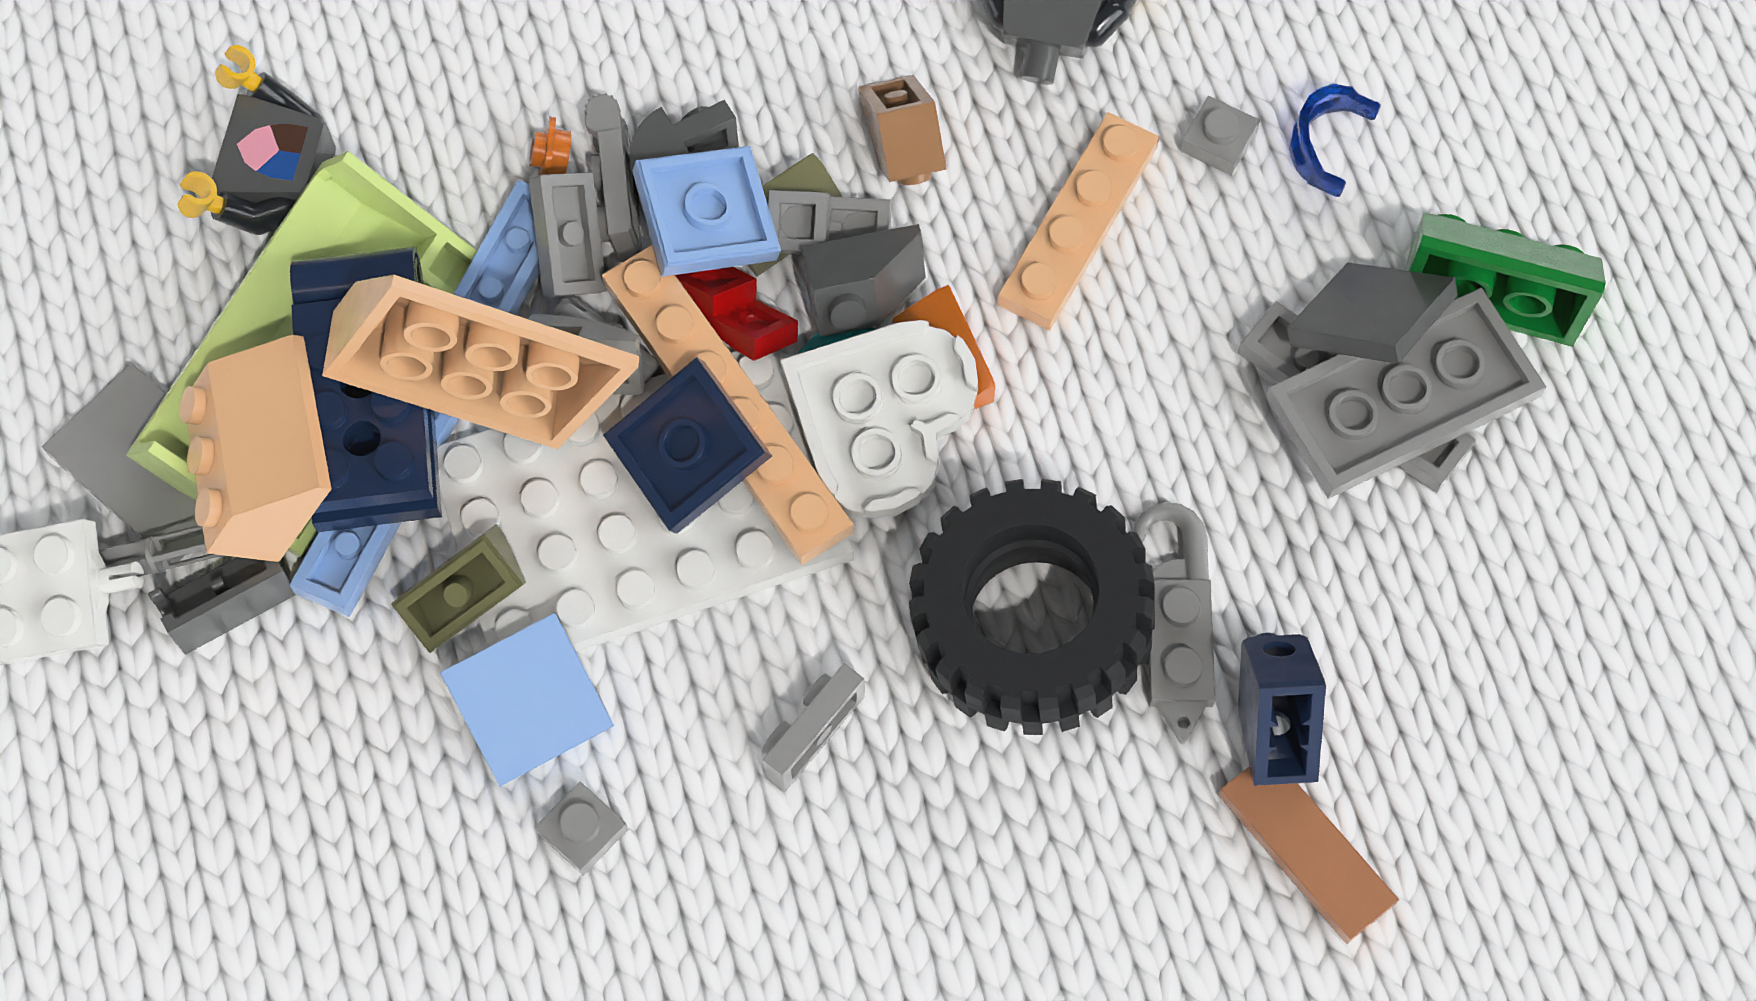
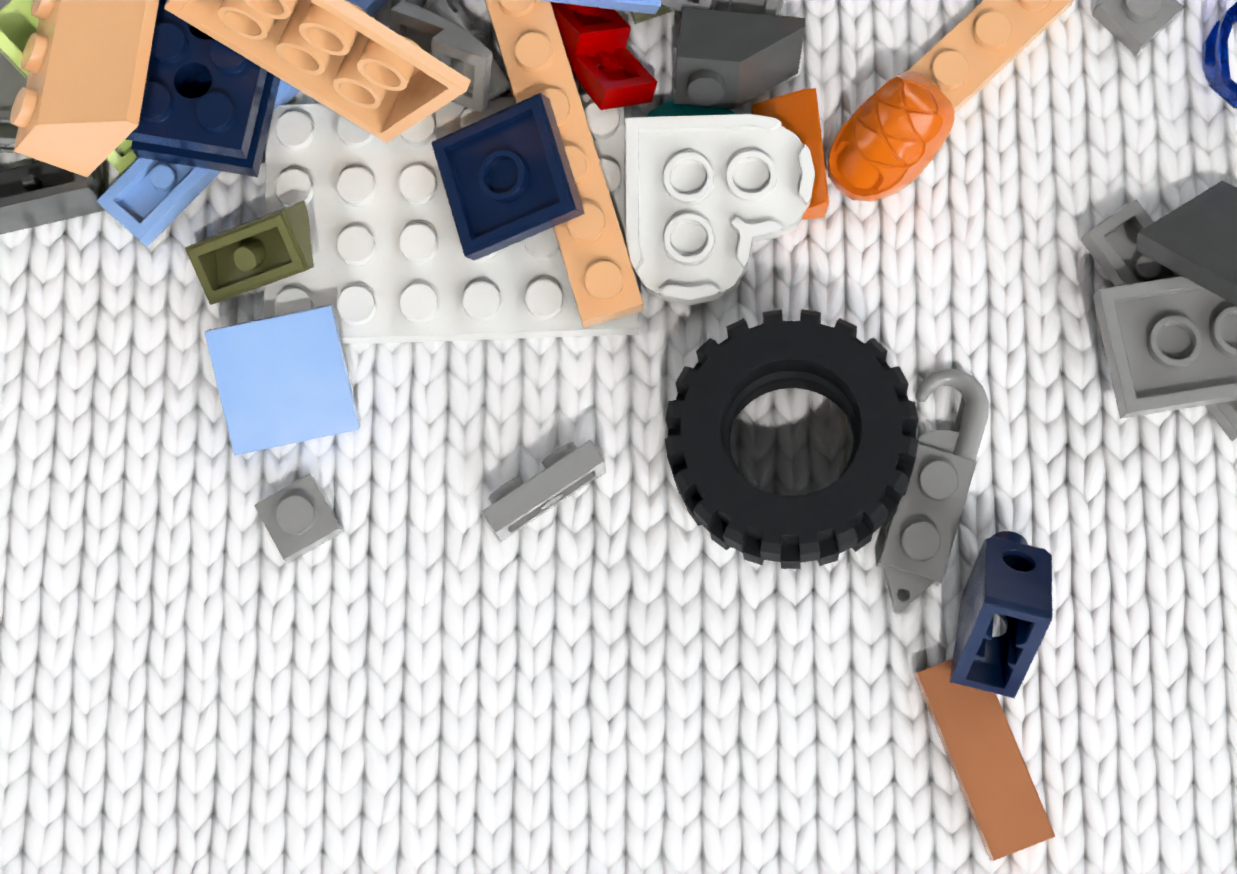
camera: 20 degrees right, 10 degrees up
(1033, 310) = (890, 138): none -> orange piece

